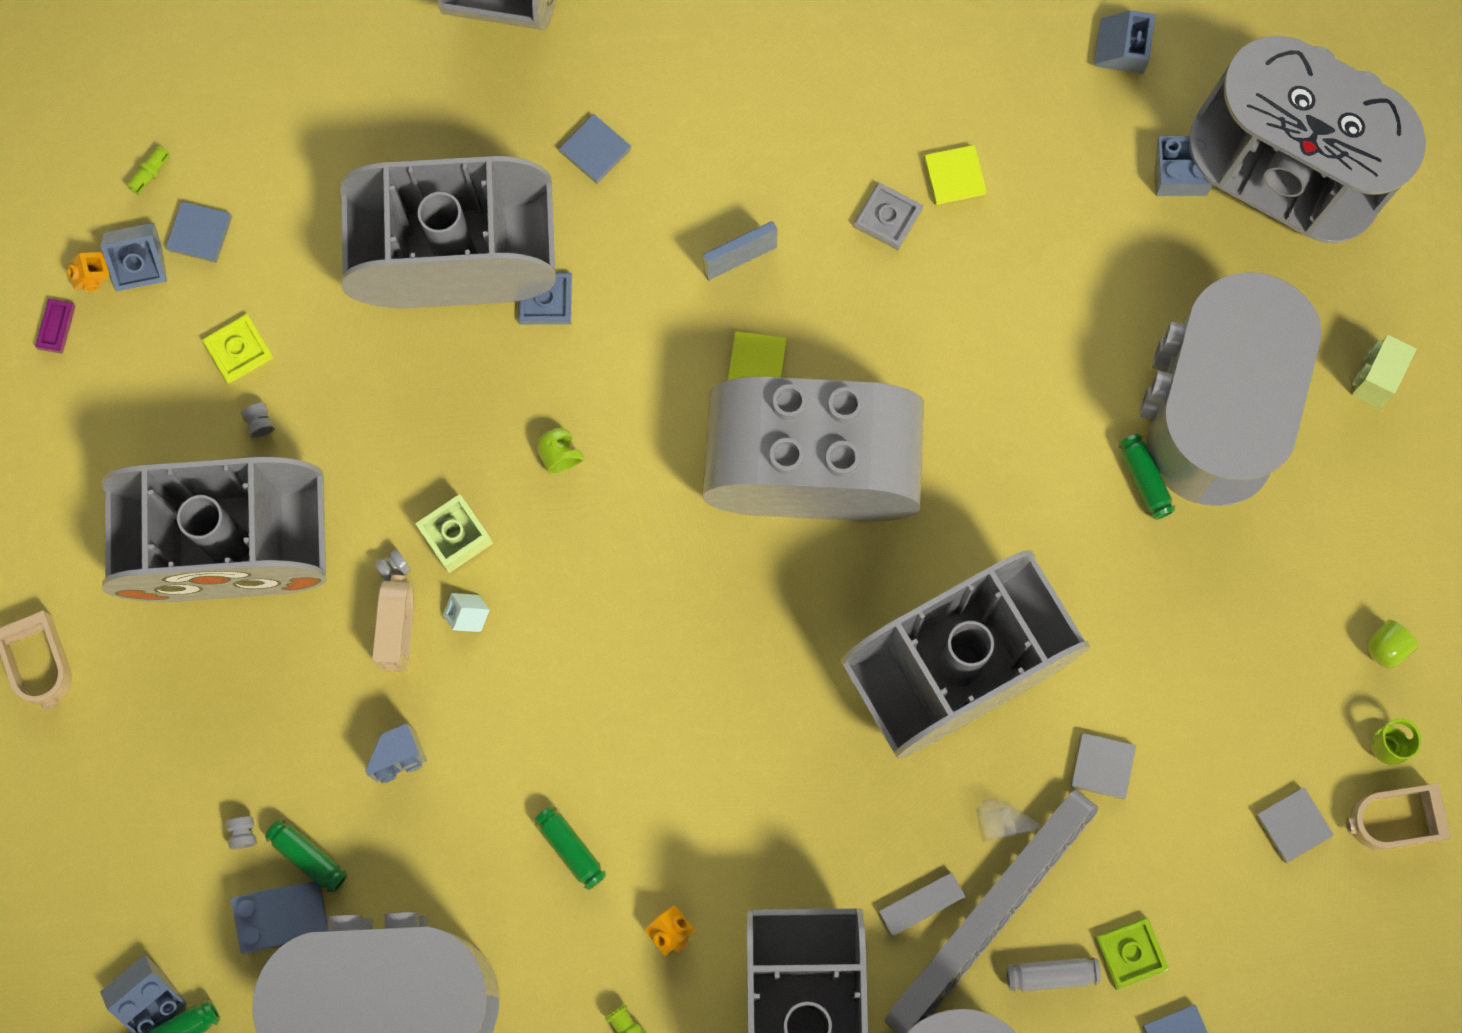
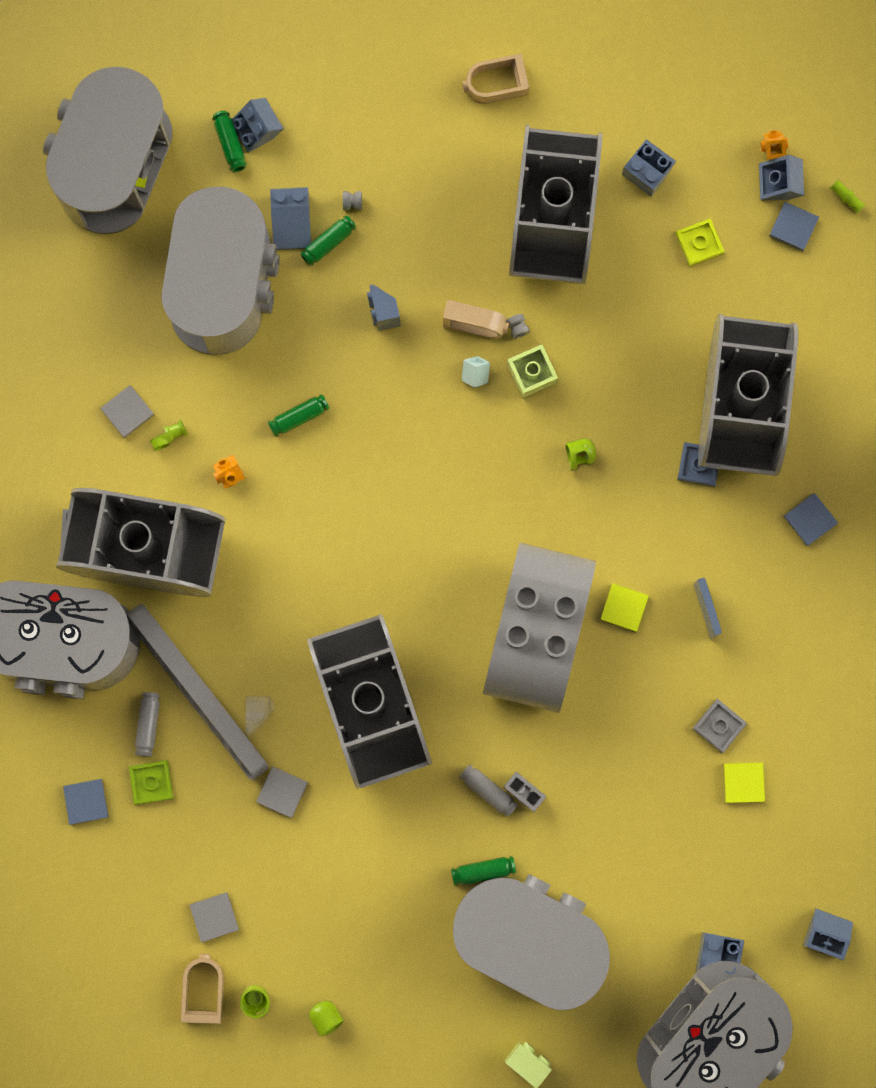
camera: 100 degrees right, 5 degrees up
(55, 326) = (739, 119): magenta tile -> none
(140, 429) = (648, 167): none -> sand blue slope
(257, 420) = (642, 248): light grey wheel -> none
(921, 904) = (213, 646): light grey tile -> none
(1032, 440) = (524, 792): none -> light grey brick
(1039, 489) = (488, 790): none -> light grey axle

